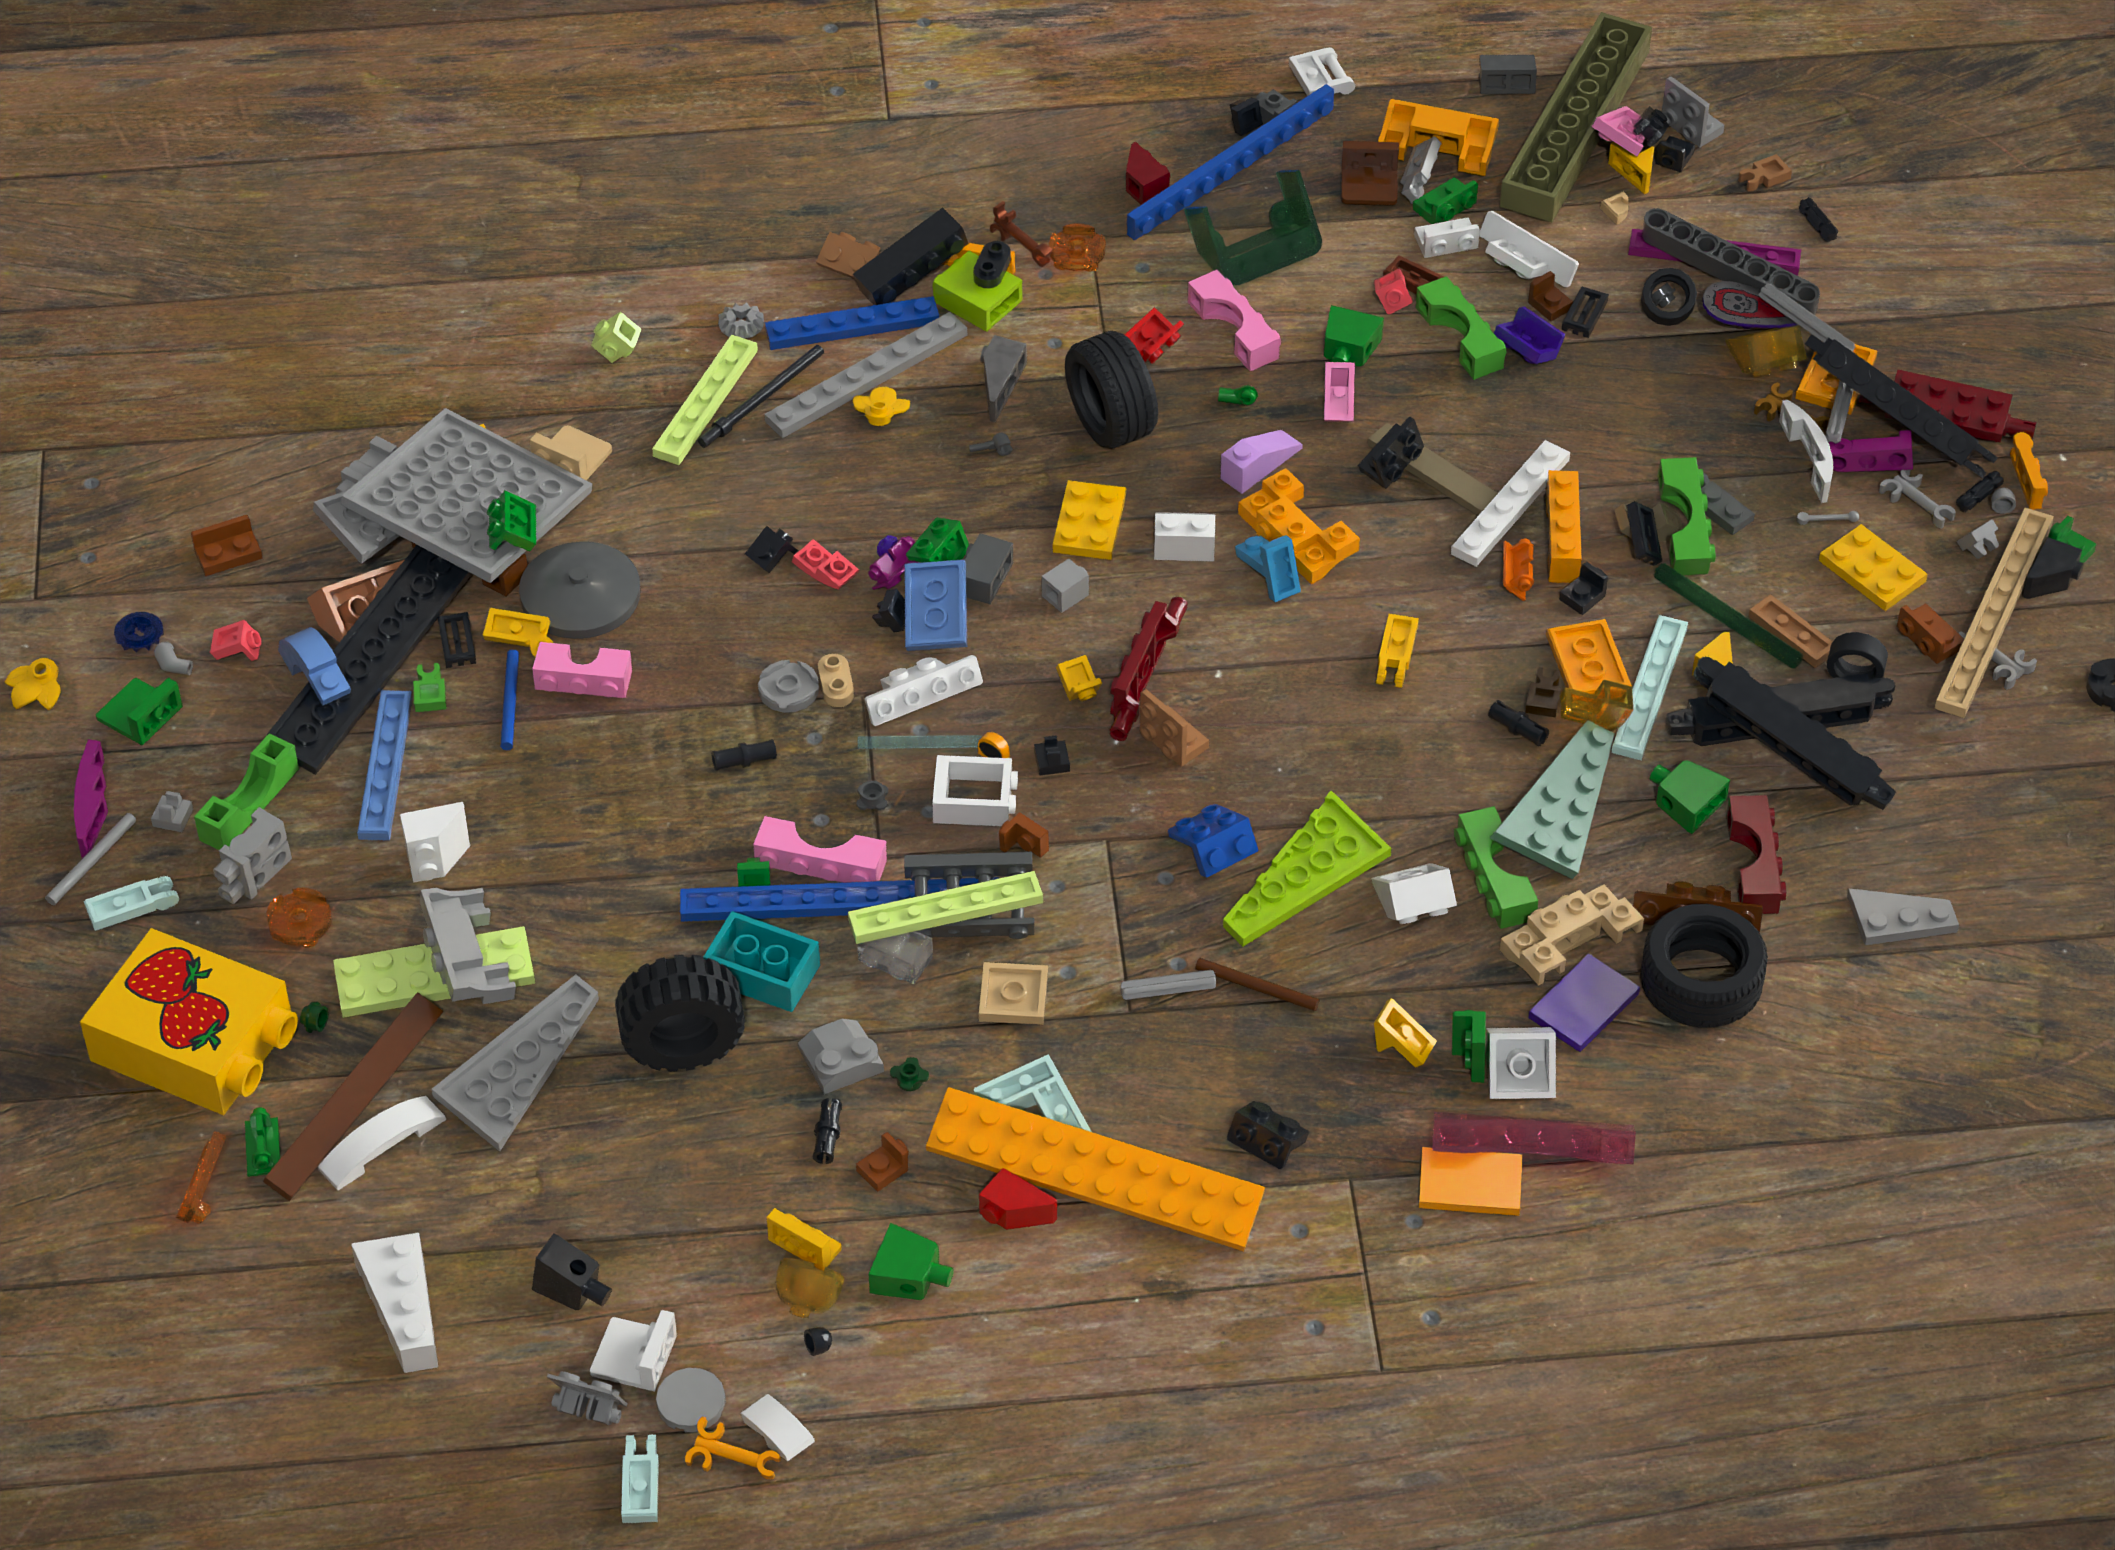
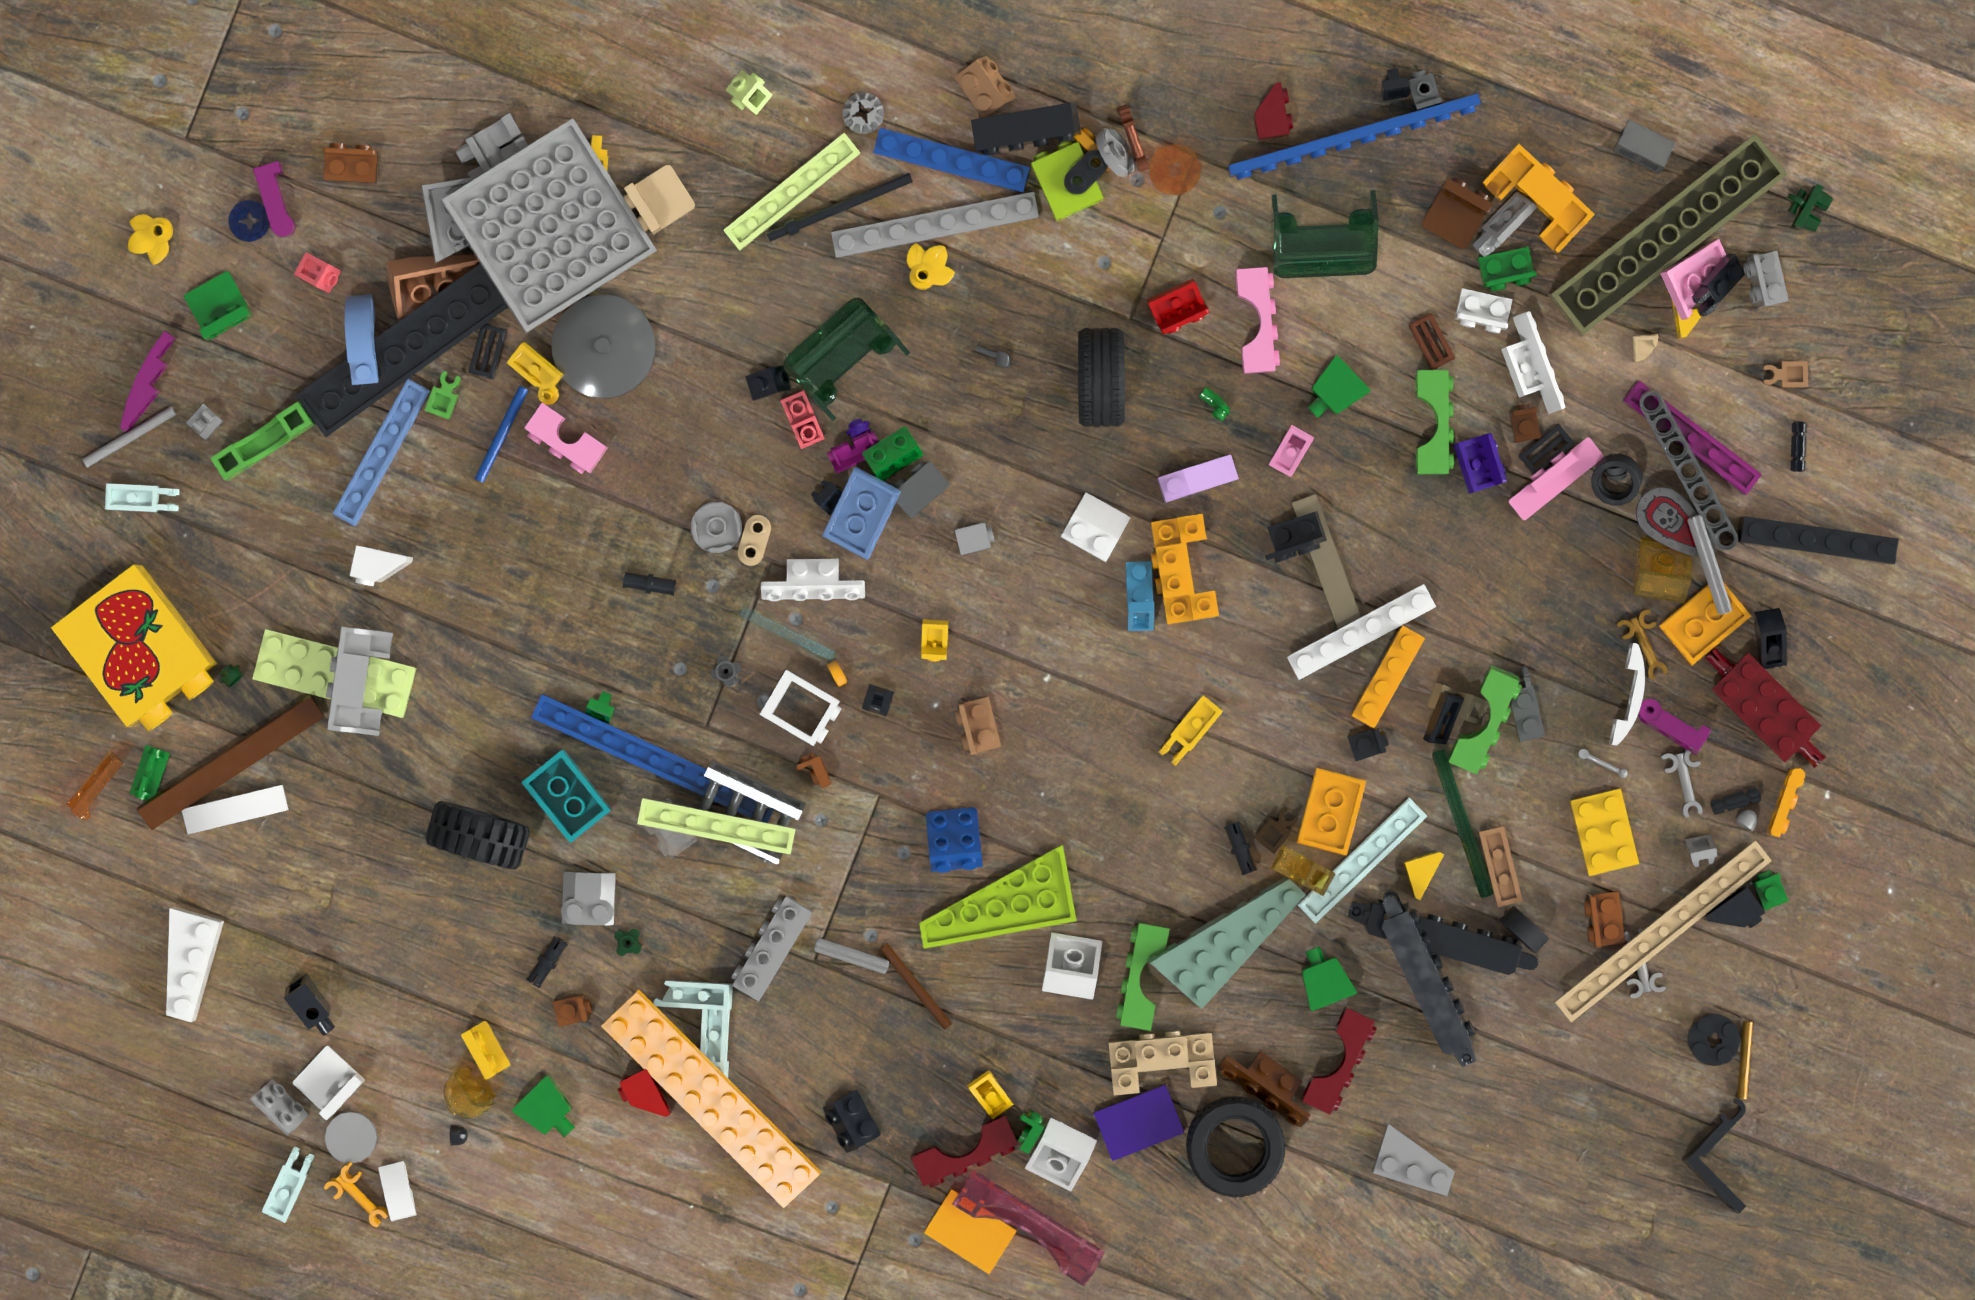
camera: 30 degrees right, 40 degrees up
(150, 597) = (273, 200): none -> magenta leg
(169, 662) = (259, 263): light grey arm -> none
(252, 857) = (232, 515): light grey hips -> none
(304, 931) = (242, 575): clear orange plate -> none
(506, 1075) = (346, 797): light grey wing -> none
(513, 521) = (564, 287): green bracket -> none
(835, 483) = (837, 348): none -> clear green windscreen
(855, 861) = (634, 689): bright pink arch -> none
(1003, 366) = (1041, 279): flat silver slope -> none
(1013, 993) = (736, 909): tan plate -> none
(1022, 248) = (1114, 152): none -> light grey tile
(1075, 1009) = (772, 947): none -> light grey brick
(1089, 520) = (1030, 473): yellow plate -> none
(1137, 668) = (953, 683): dark red plate -> none
(1313, 75) = (1480, 64): white plate -> none
(1389, 1129) = (934, 1164): none -> dark red arch
(1393, 291) = (1400, 352): coral bracket -> none
(1517, 567) = (1322, 707): orange hinge -> none
(1608, 323) = (1556, 478): none -> bright pink bracket
(1674, 153) = (1729, 310): black bracket -> none
(1690, 56) = (1815, 198): none -> dark green hips
(1839, 413) = (1680, 666): light grey axle -> none
(1898, 403) = (1717, 702): black hinge -> none
(1909, 351) = (1771, 638): none -> black slope
(1942, 255) = (1817, 540): none -> black arch

